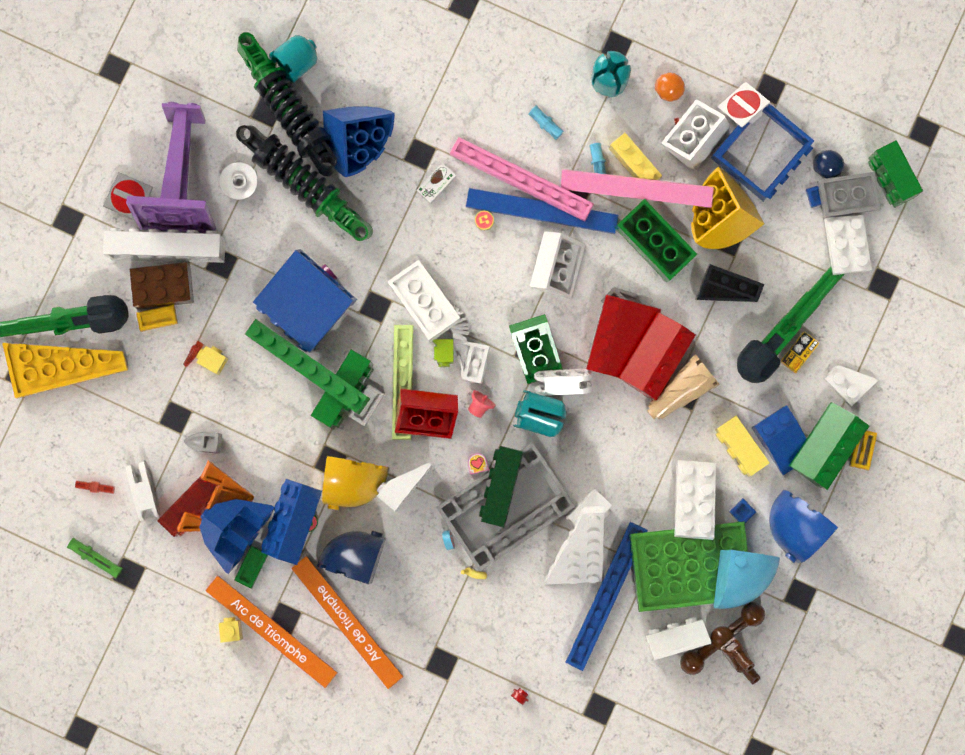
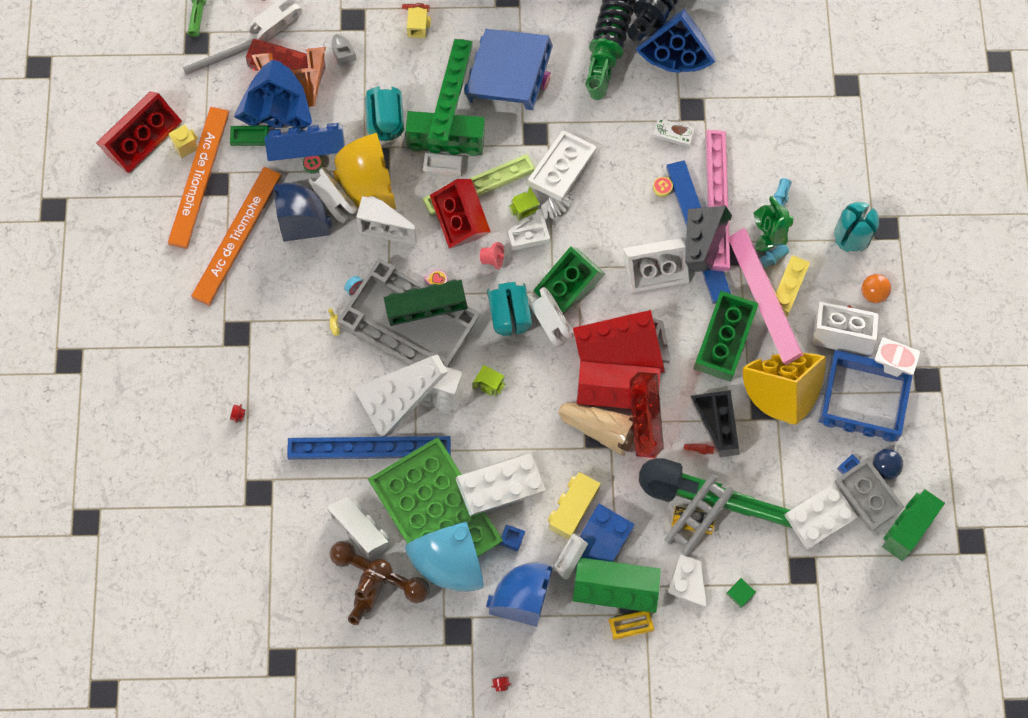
camera: 60 degrees right, 15 degrees down
(154, 559) = (217, 57): none -> light grey bar
(199, 667) = (139, 131): none -> red slope
(296, 436) = (384, 113): none -> teal cylinder
(352, 519) = (332, 195): none -> white piece
(557, 211) = (704, 233): none -> wedge
(575, 143) = (775, 224): none -> green brick
(596, 463) = (489, 381): none -> lime window
(700, 347) = (646, 414): none -> clear red brick
(741, 313) = (700, 448): none -> clear red piece
(786, 472) = (570, 556): none -> white tile
(793, 342) = (711, 512): none -> light grey bar
(862, 581) = (501, 683): none -> red plate
(879, 345) = (740, 592): none -> green tile

